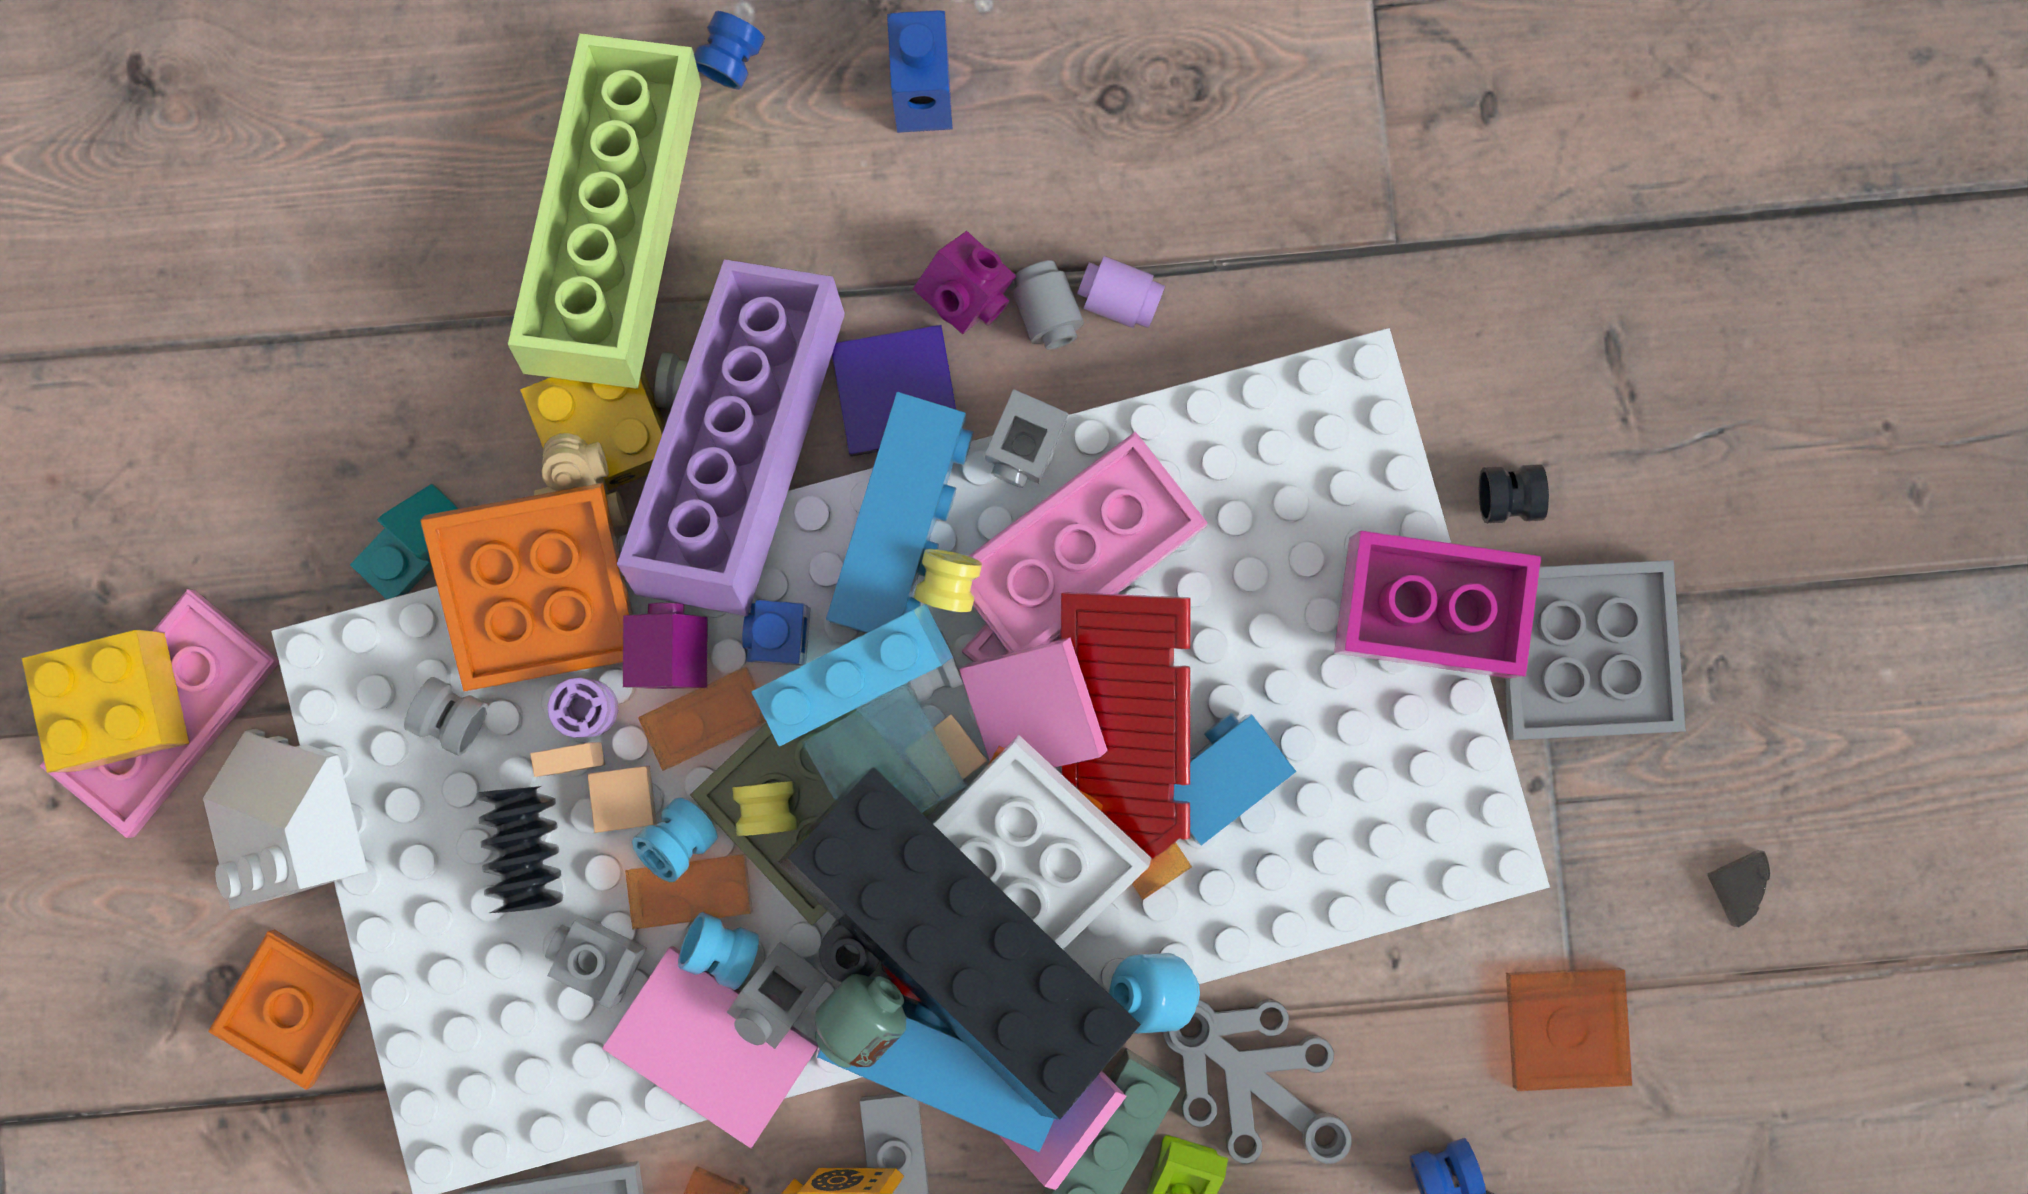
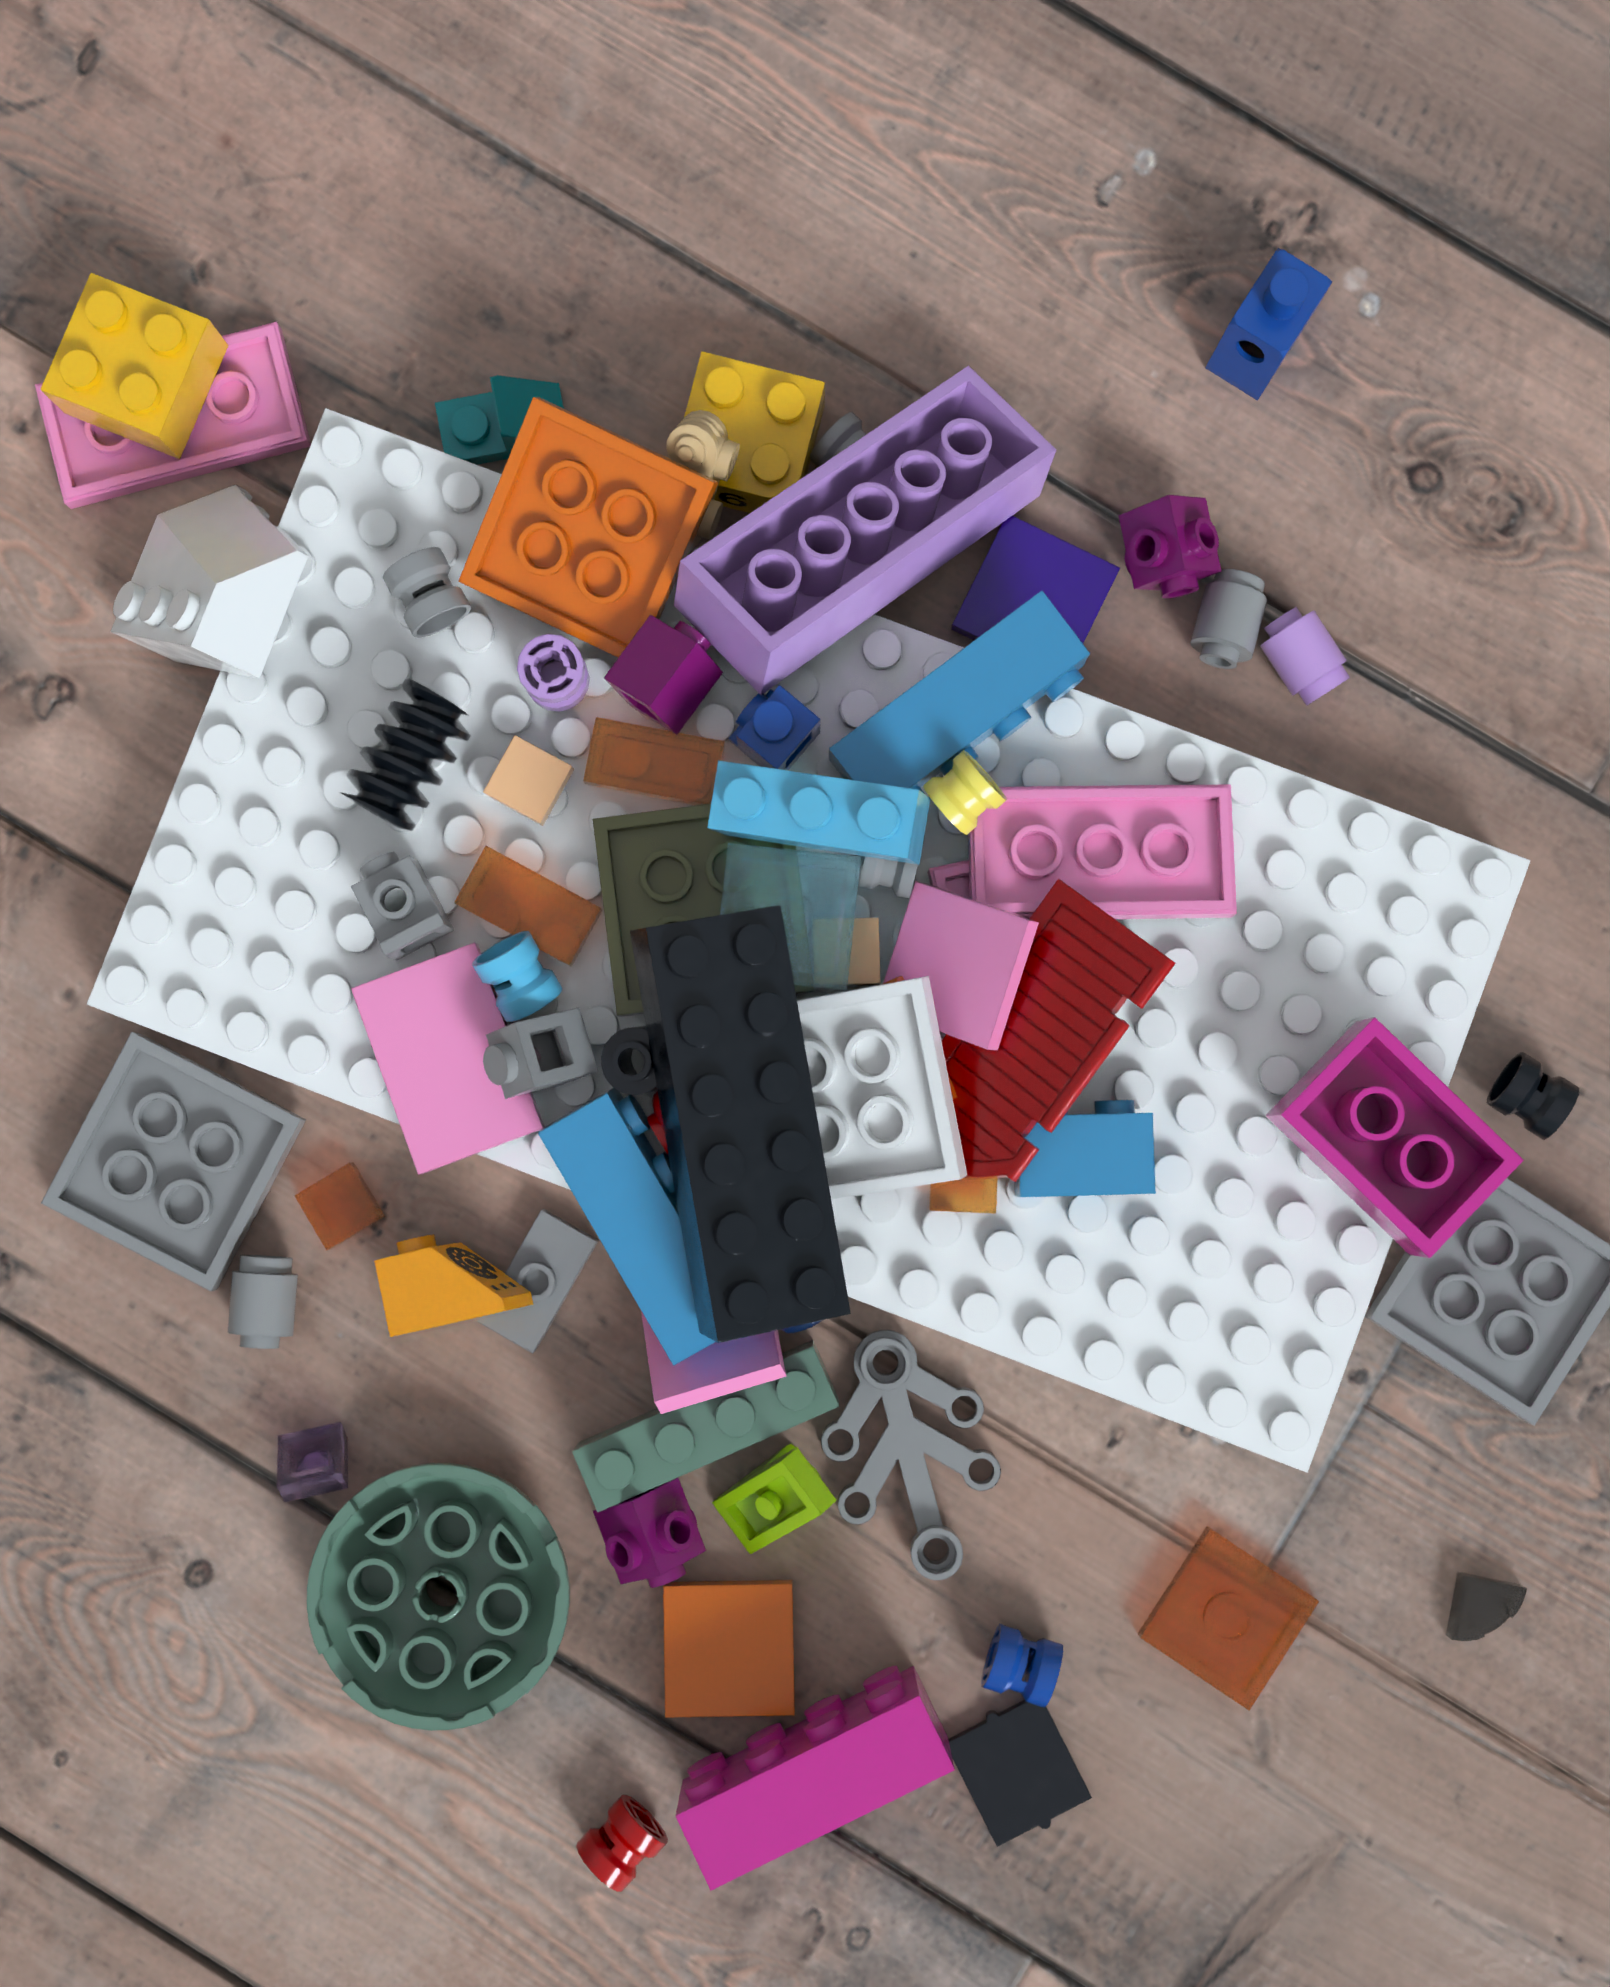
camera: 40 degrees right, 0 degrees up
(289, 1009) = (96, 759): orange tile -> none
(567, 759) = (506, 708): light nougat tile -> none
(606, 212) = (894, 246): yellowish green brick -> none
(674, 840) = (552, 848): medium azure wheel -> none
(729, 46) = (1109, 181): blue wheel -> none
(764, 808) = (652, 876): light yellow wheel -> none
(860, 1021) = (601, 1126): sand green head -> none
(1029, 418) = (1141, 701): light grey brick -> none
(1156, 991) = (885, 1299): medium azure head -> none

